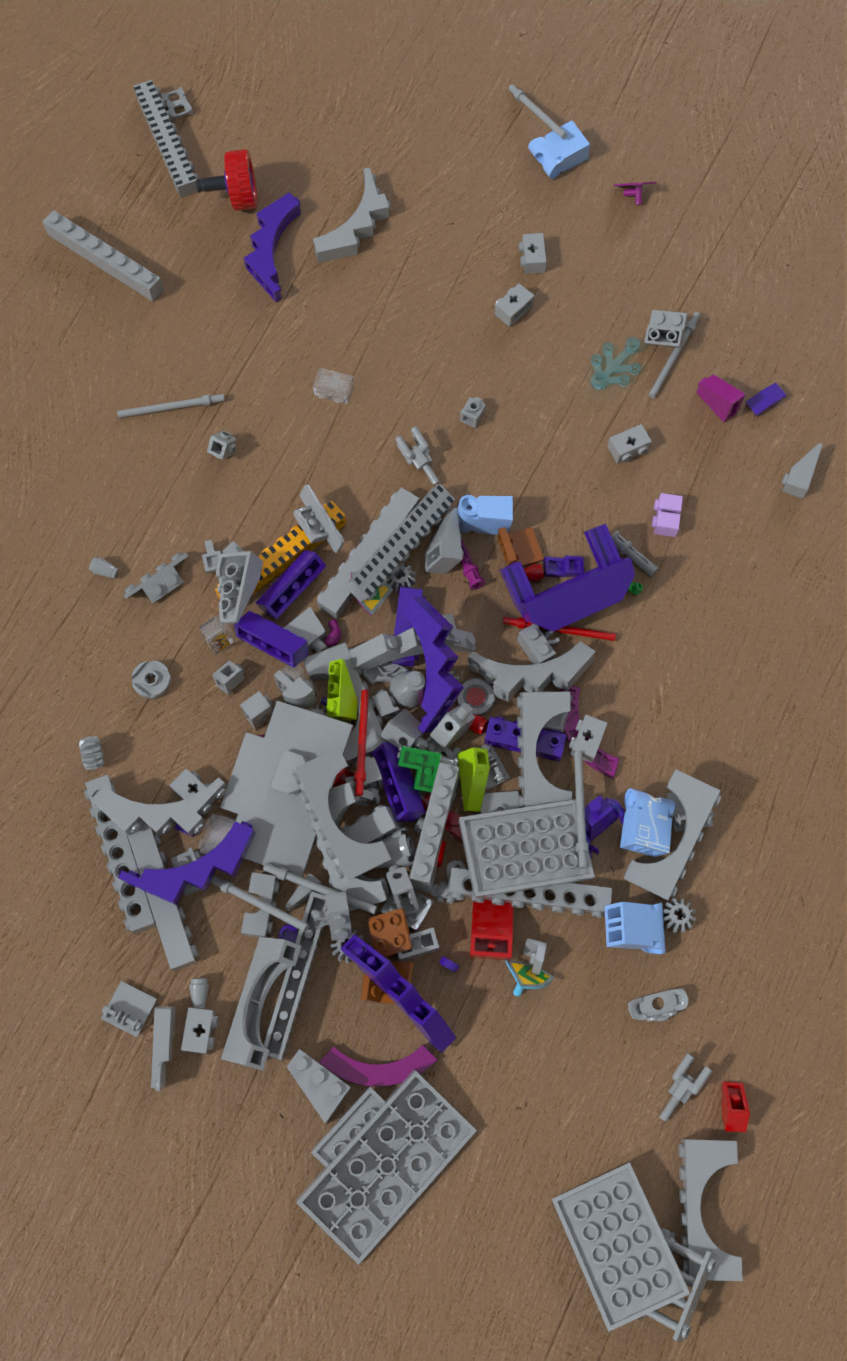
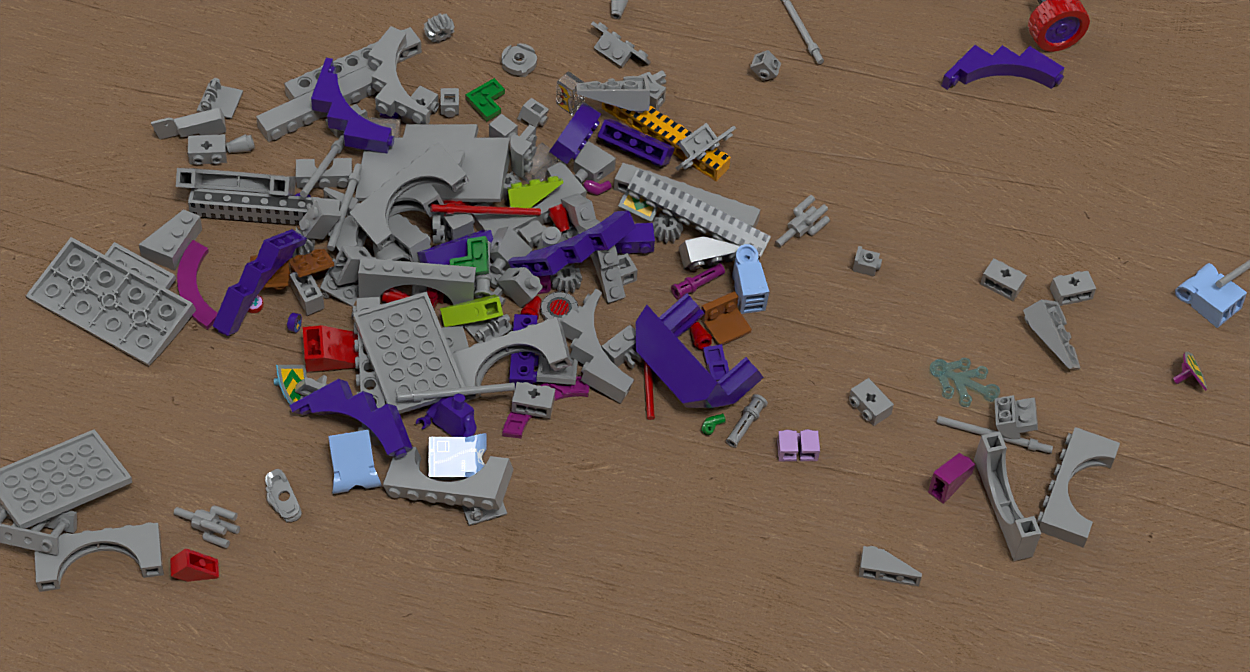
camera: 75 degrees right, 15 degrees down
(188, 756) = (450, 106): none -> light grey brick
(196, 726) = (483, 97): none -> green plate
(333, 385) = (859, 142): clear brick -> none
(345, 239) = (1052, 135): light grey arch -> none
(372, 674) = (559, 217): none -> red cone
(566, 283) = (1048, 322): none -> light grey wedge
(570, 929) = (383, 421): none -> dark purple arch
(674, 907) = (371, 501): light grey gear -> none
(762, 324) = (1060, 516): none -> light grey arch
(765, 399) = (967, 525): dark purple slope -> none
(788, 358) = (1019, 532): none -> light grey arch

